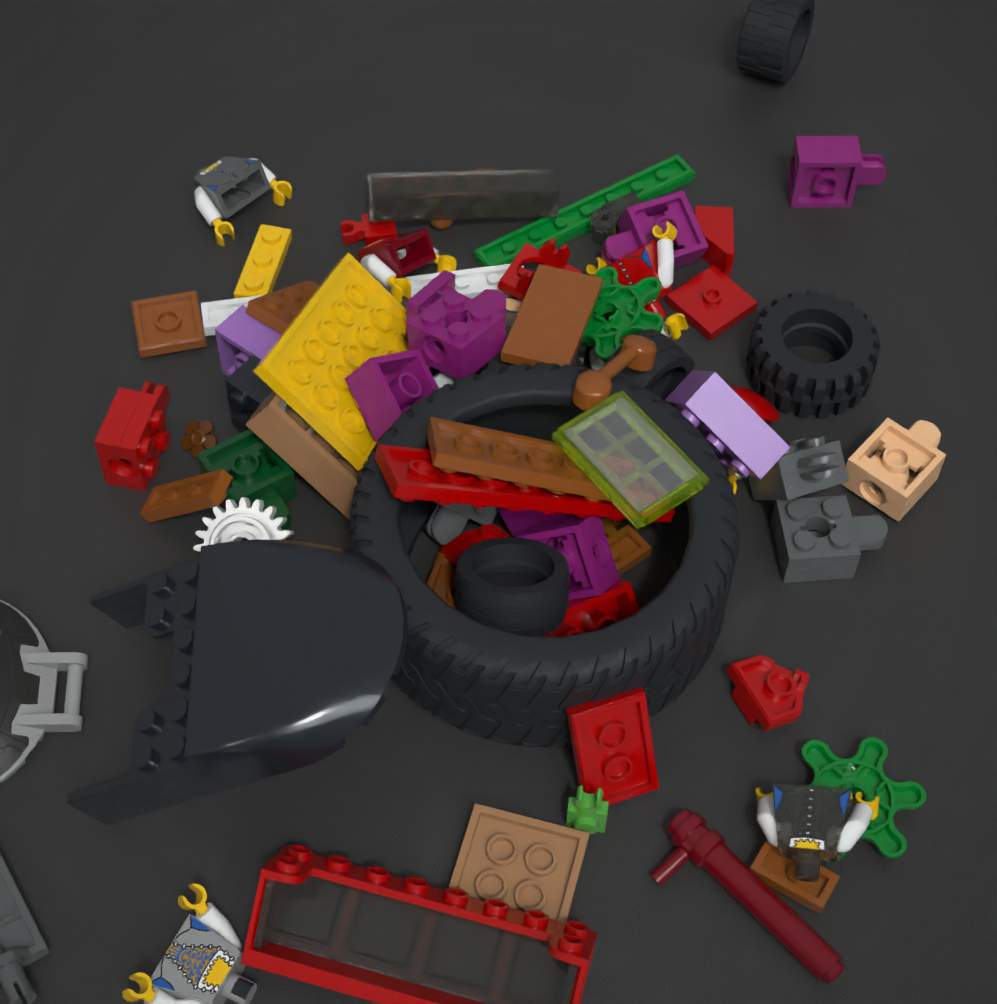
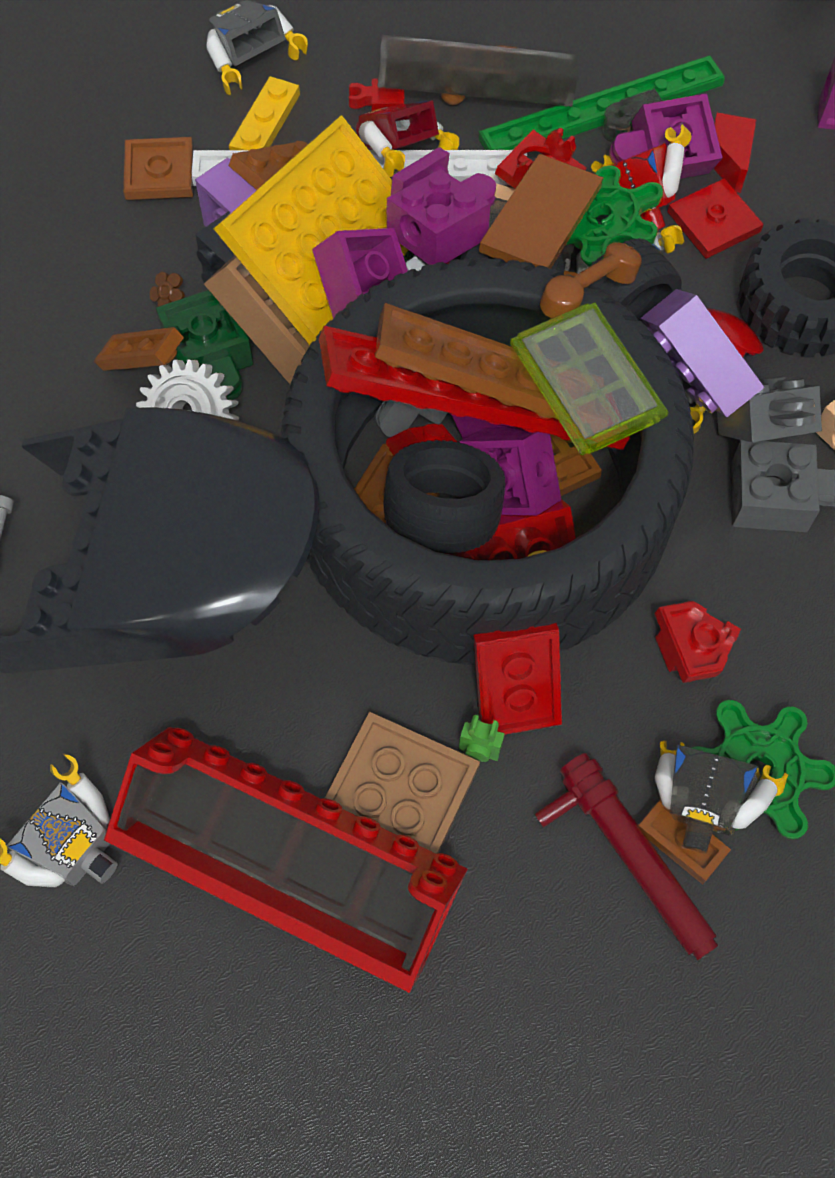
camera: 10 degrees right, 10 degrees up
(134, 436) = (99, 279): red brick -> none

